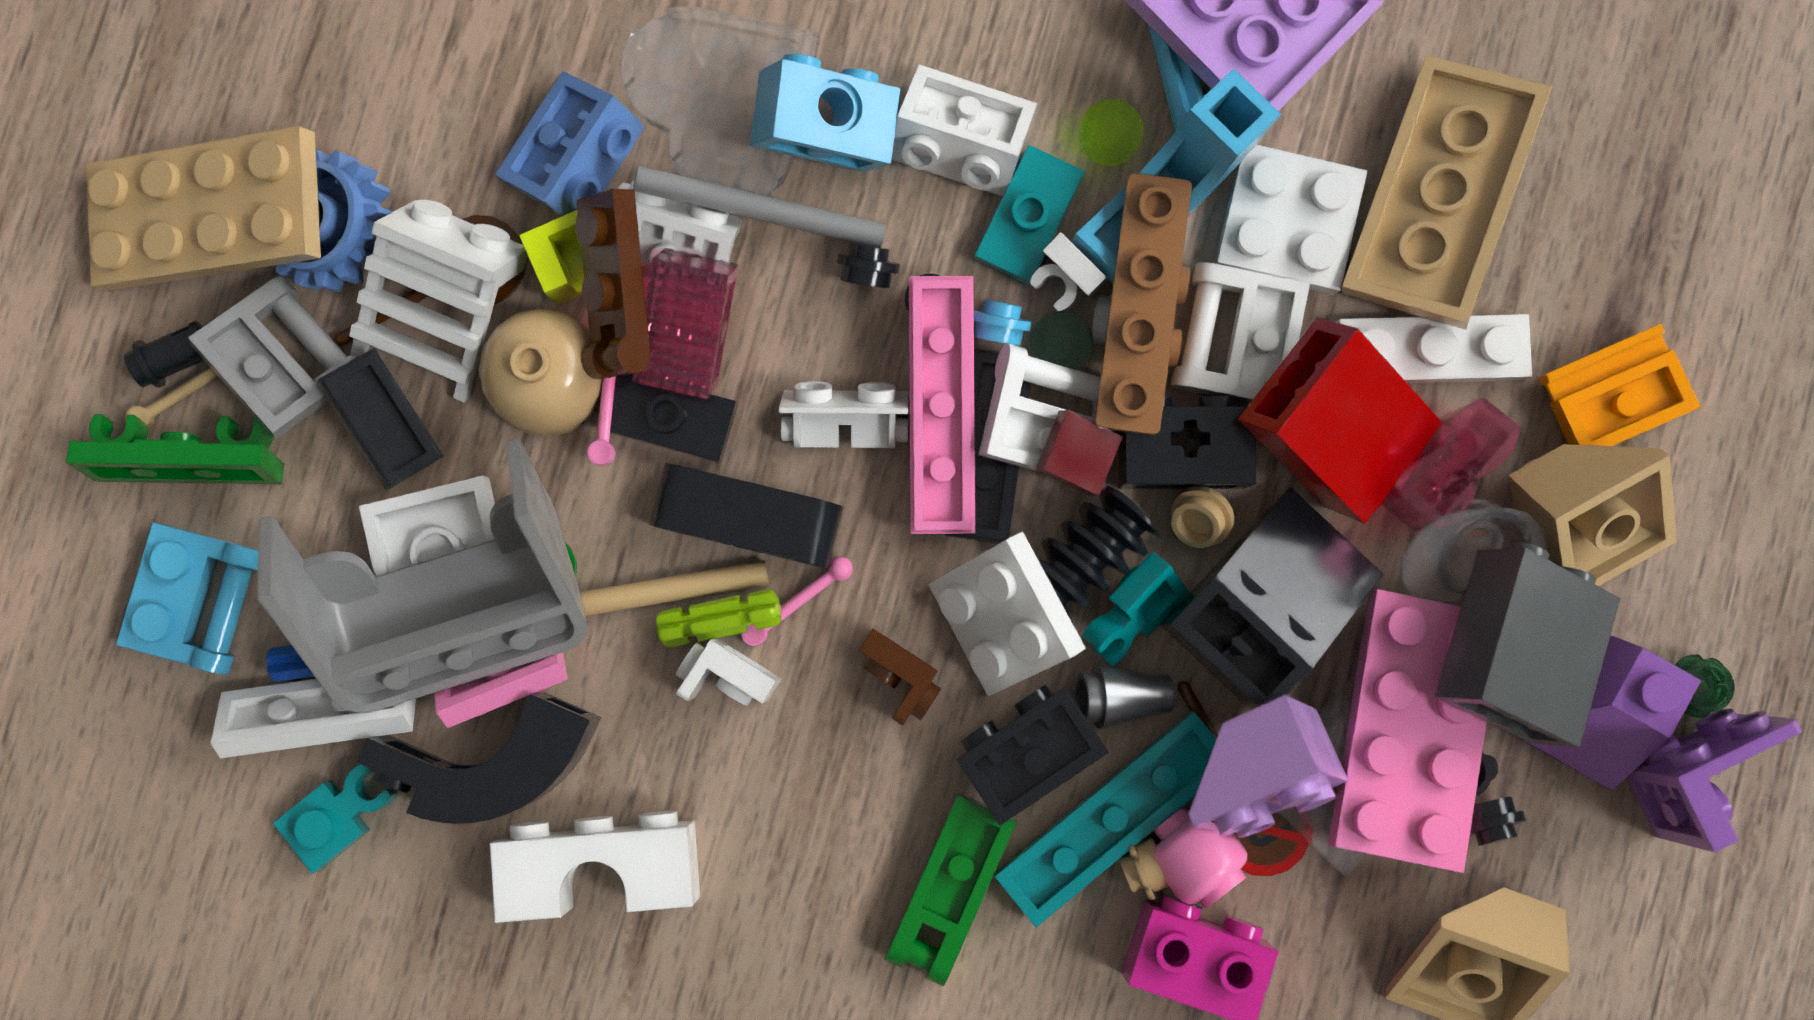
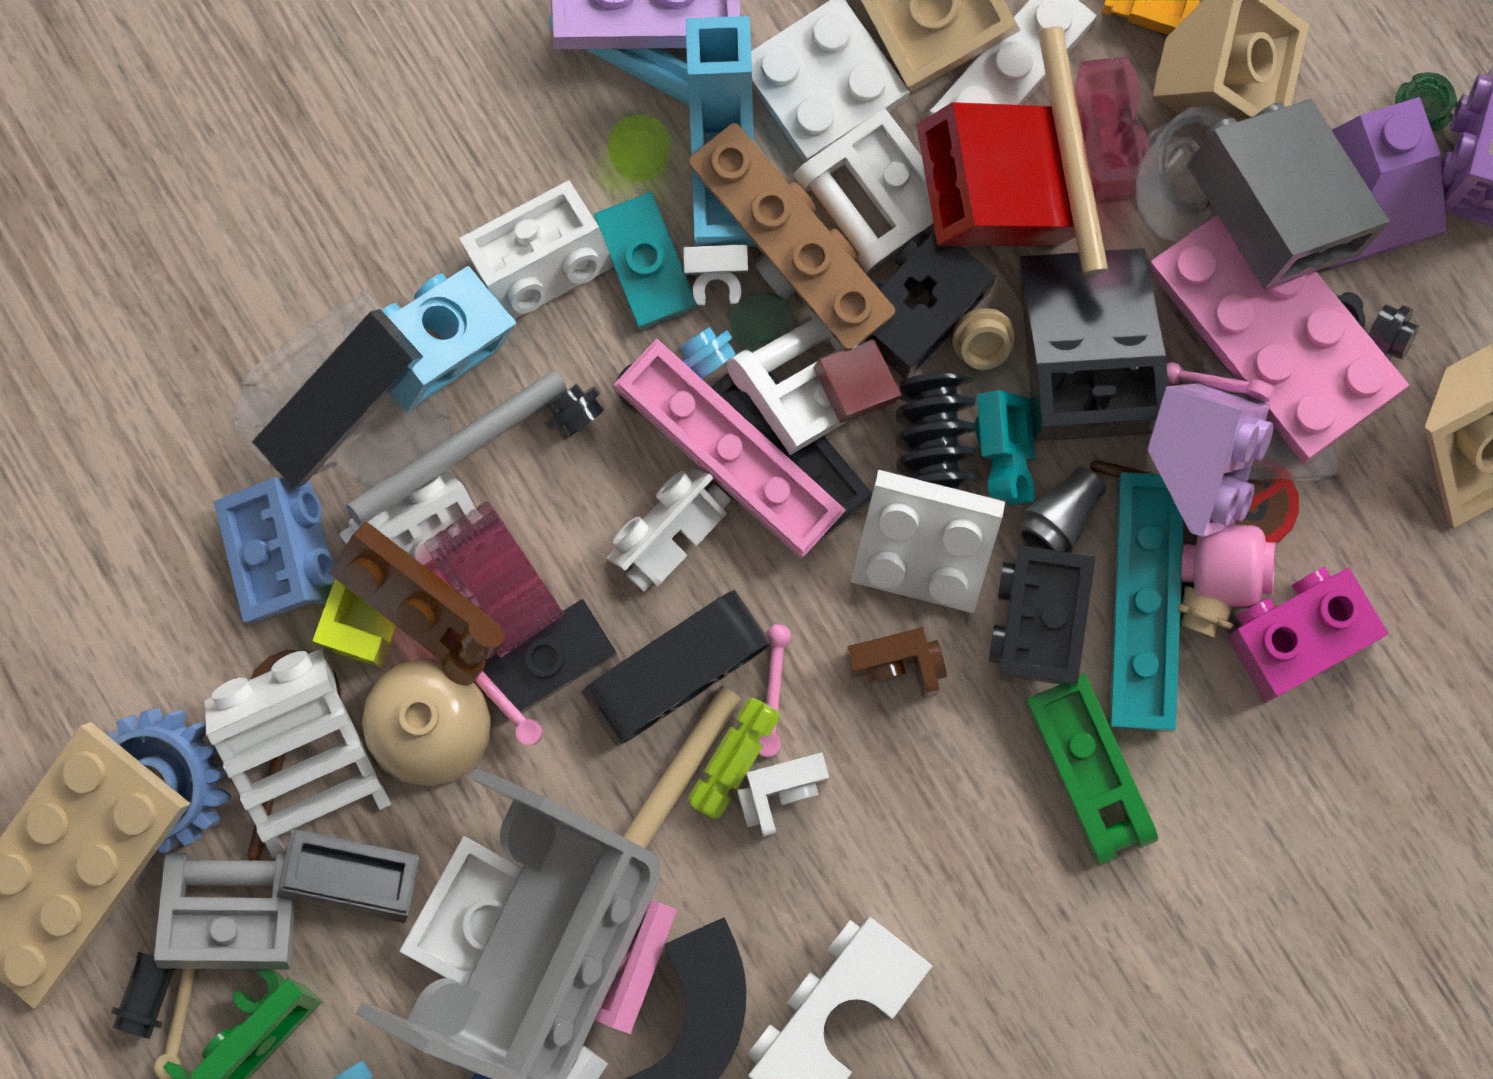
camera: 50 degrees left, 5 degrees down
(709, 84) = (337, 398): none -> black tile
(1349, 757) = (1255, 388): none -> bright pink hinge
(1407, 453) = (1072, 151): none -> tan bar

